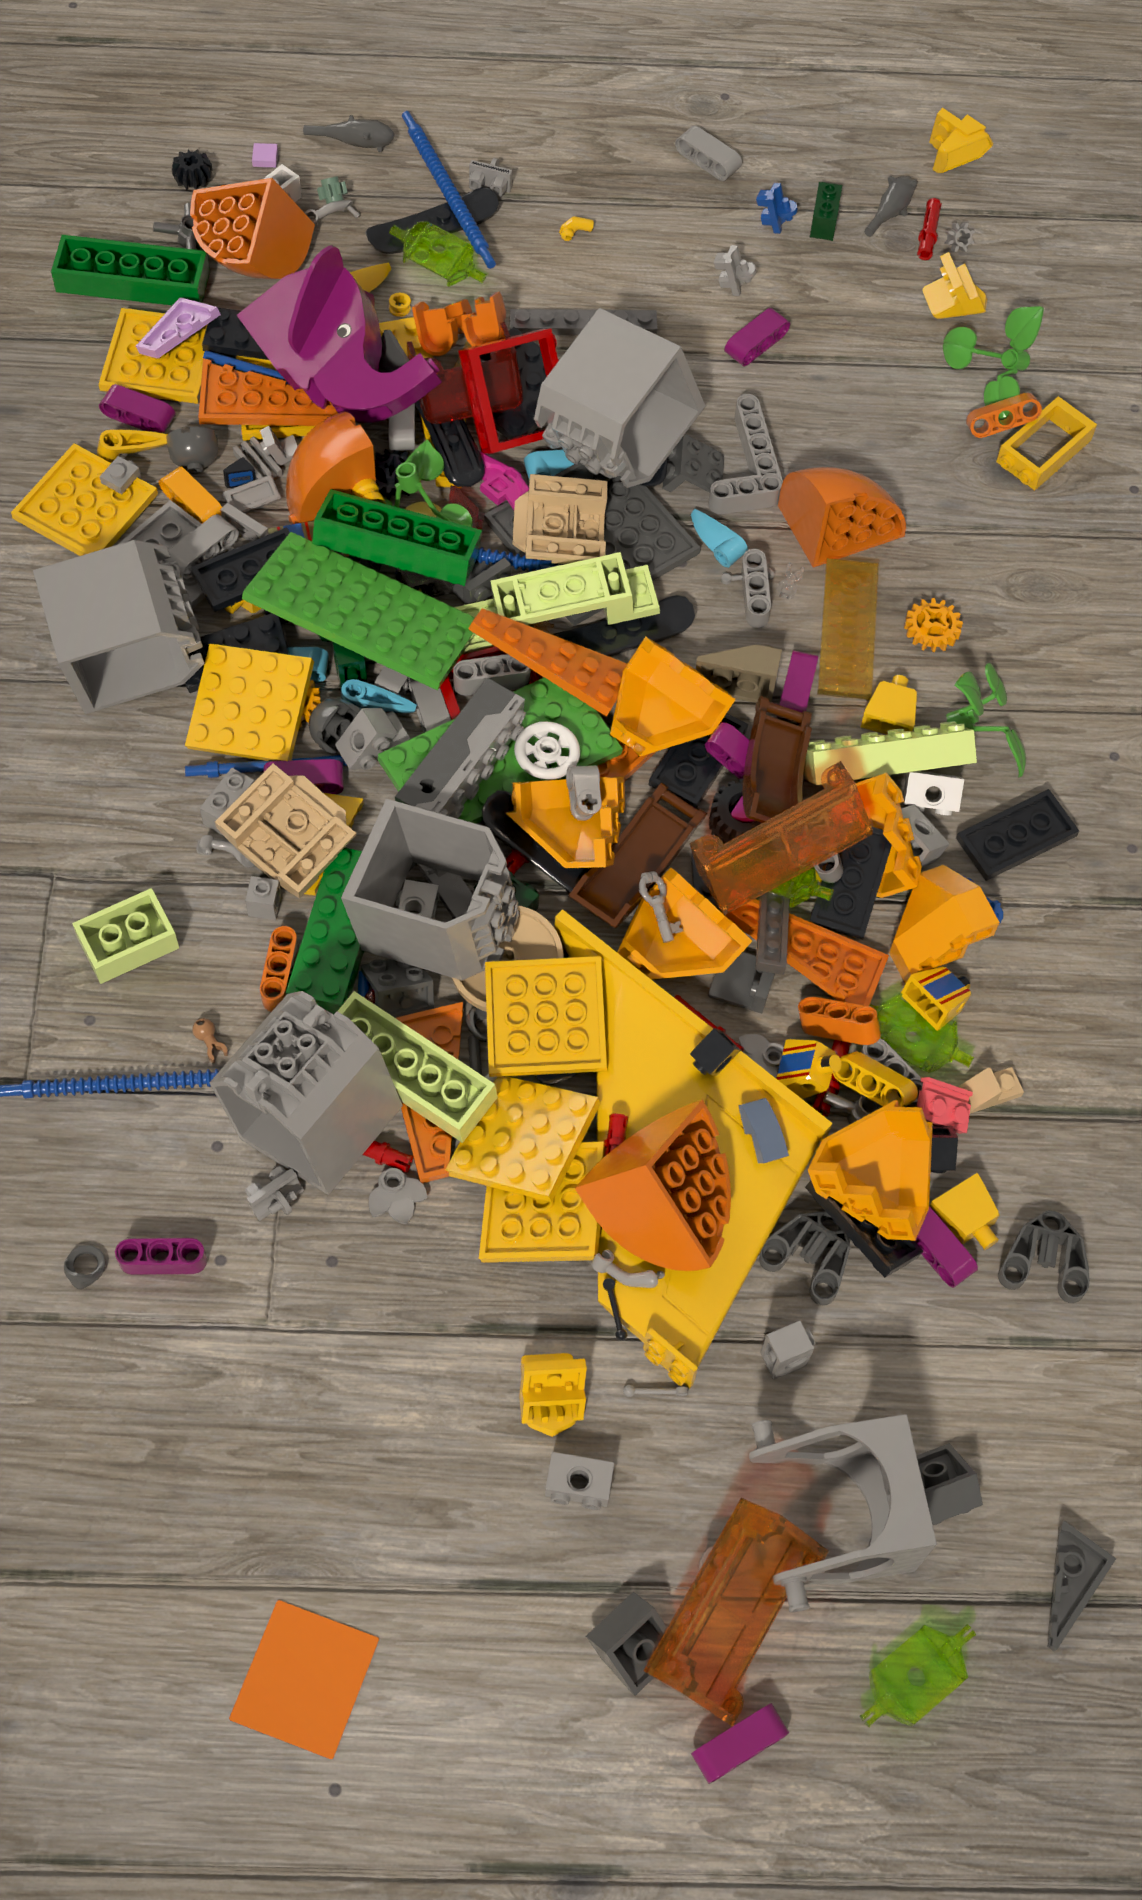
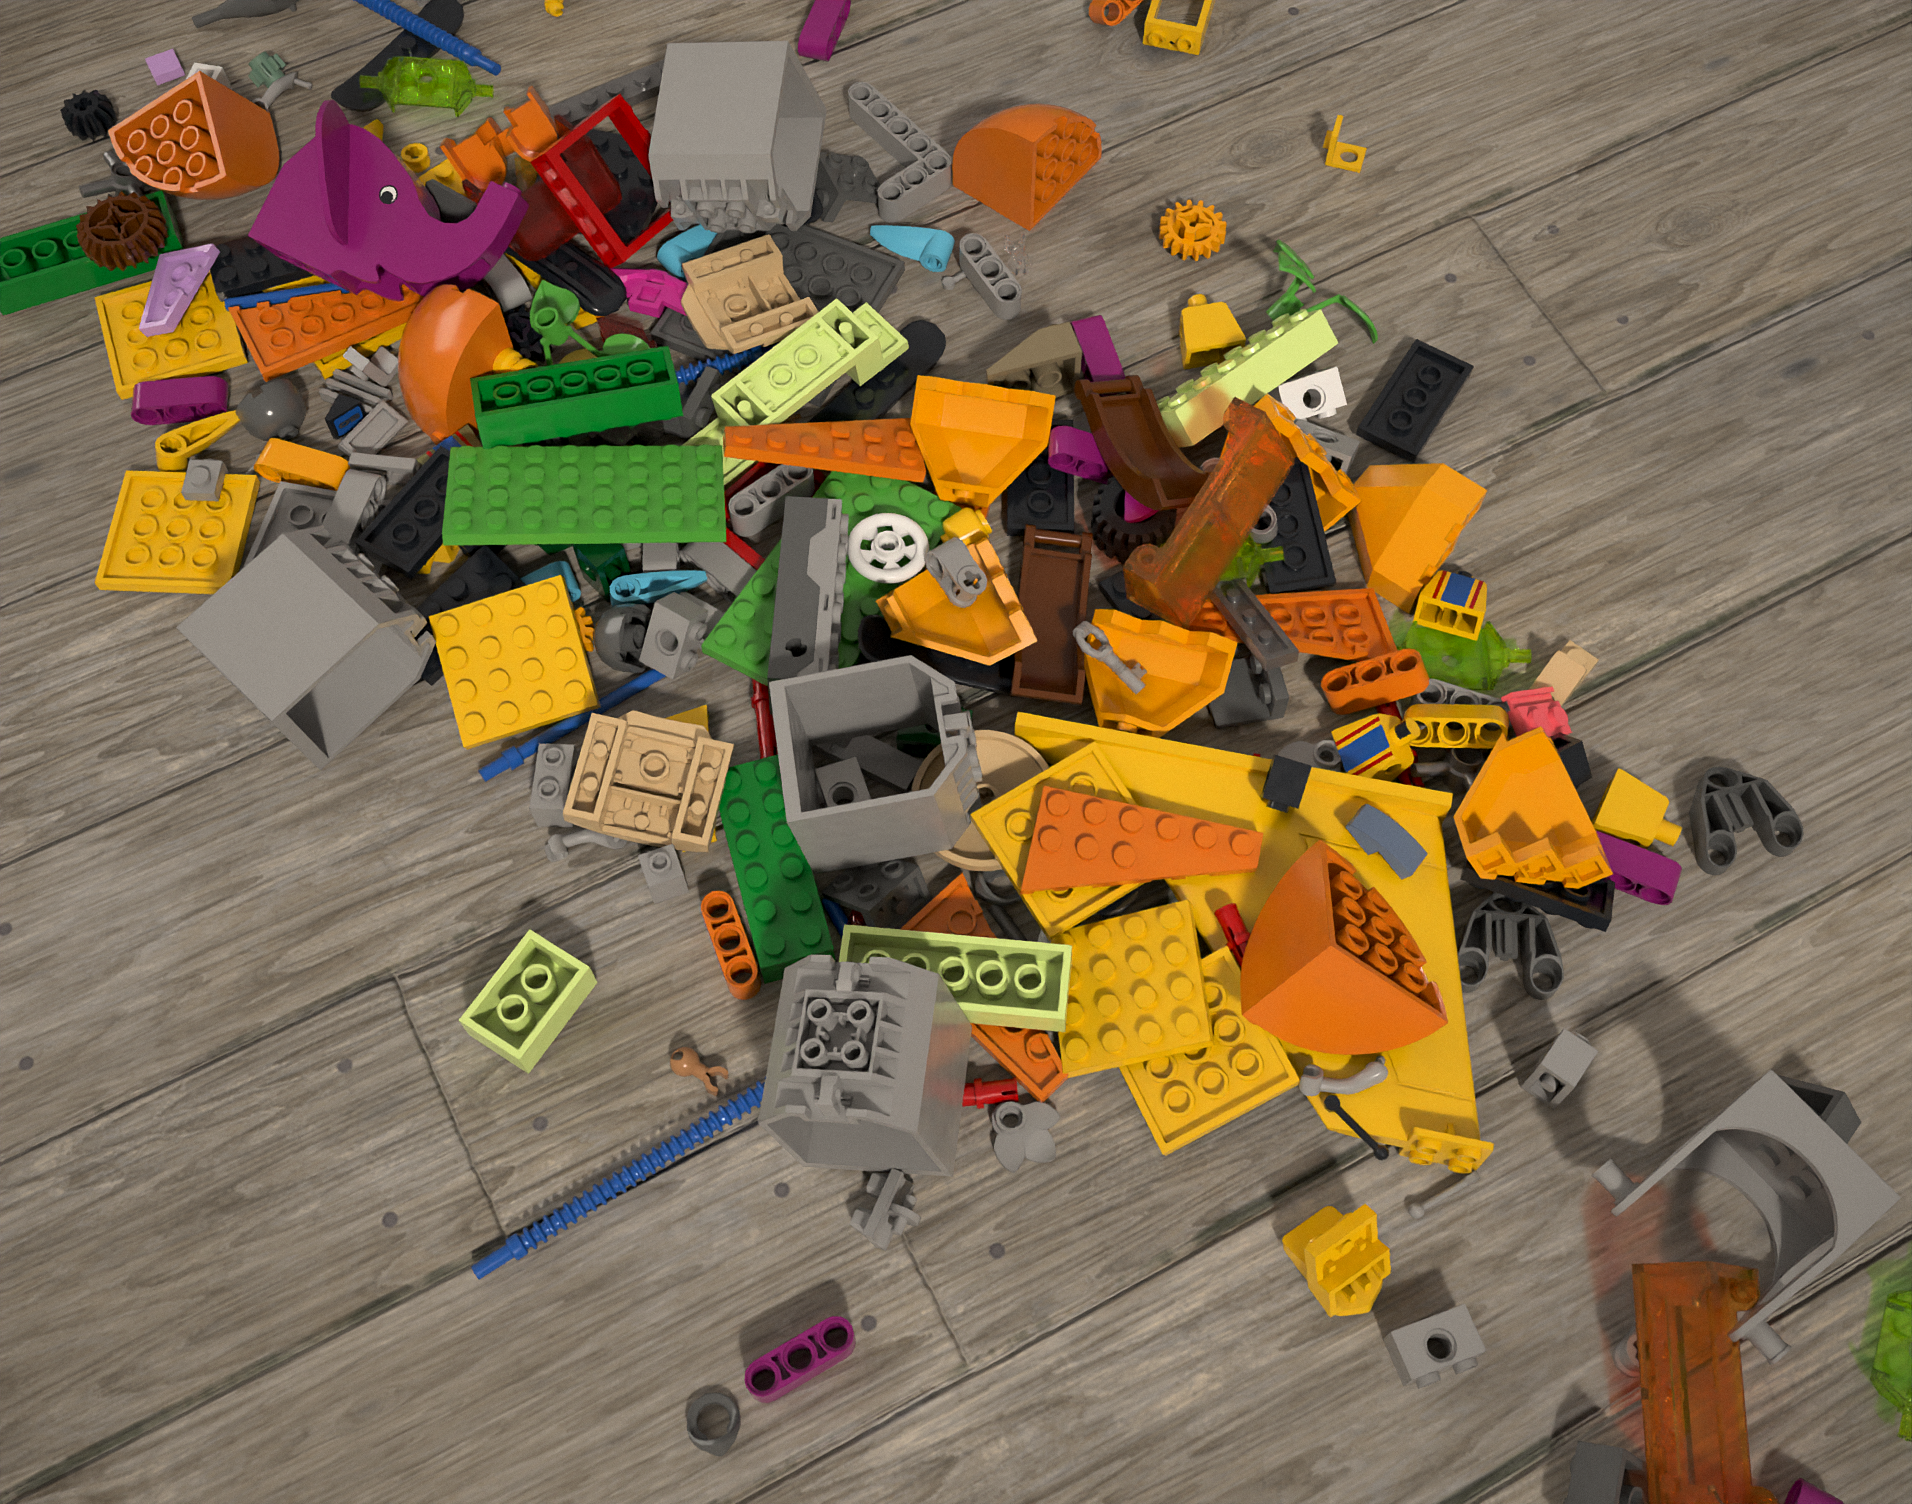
camera: 25 degrees left, 0 degrees up
(161, 270) = (122, 231): none -> reddish brown gear
(323, 773) = (646, 696): magenta beam -> none
(571, 1033) = (1114, 843): none -> orange wing
(615, 764) = (966, 526): none -> yellow head
(848, 629) = (1109, 274): clear yellow plate -> none
(1089, 613) = (1336, 148): none -> yellow bracket

